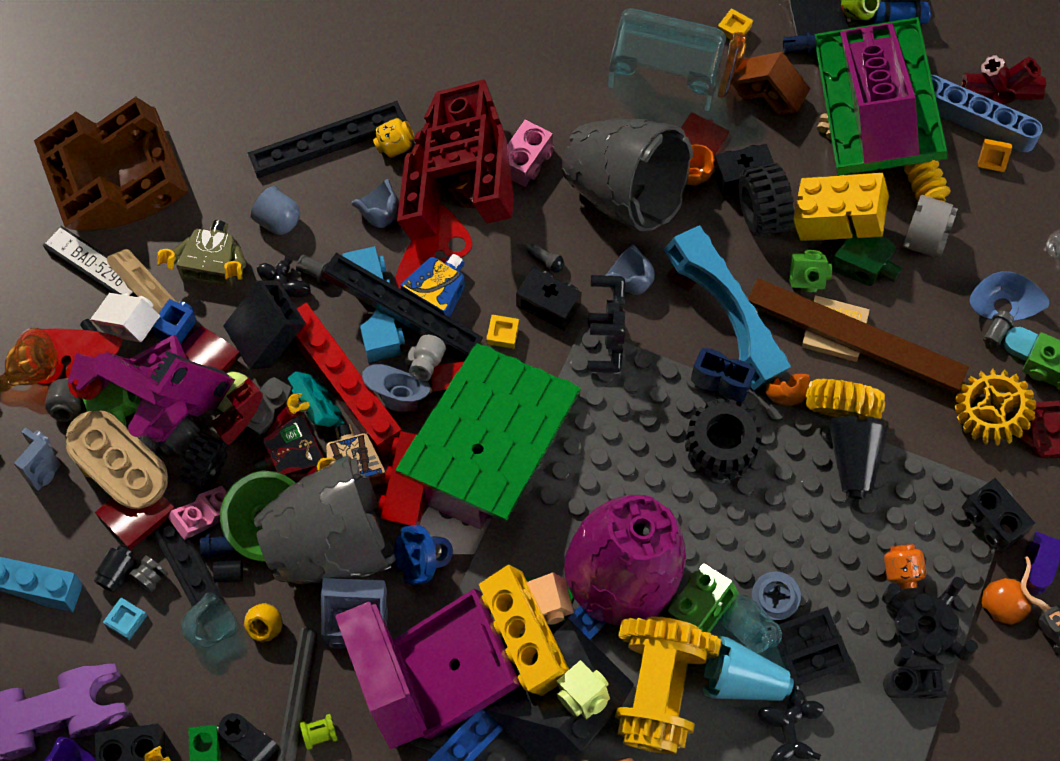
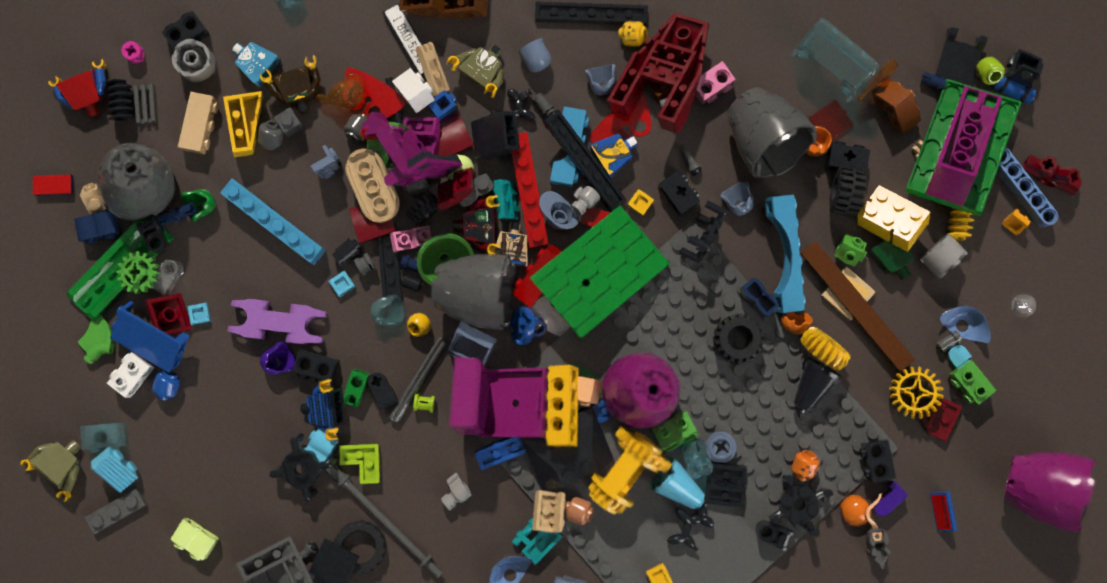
camera: 25 degrees right, 20 degrees up
(583, 691) = (578, 459): yellowish green brick -> none
(735, 22) = (897, 48): yellow plate -> none

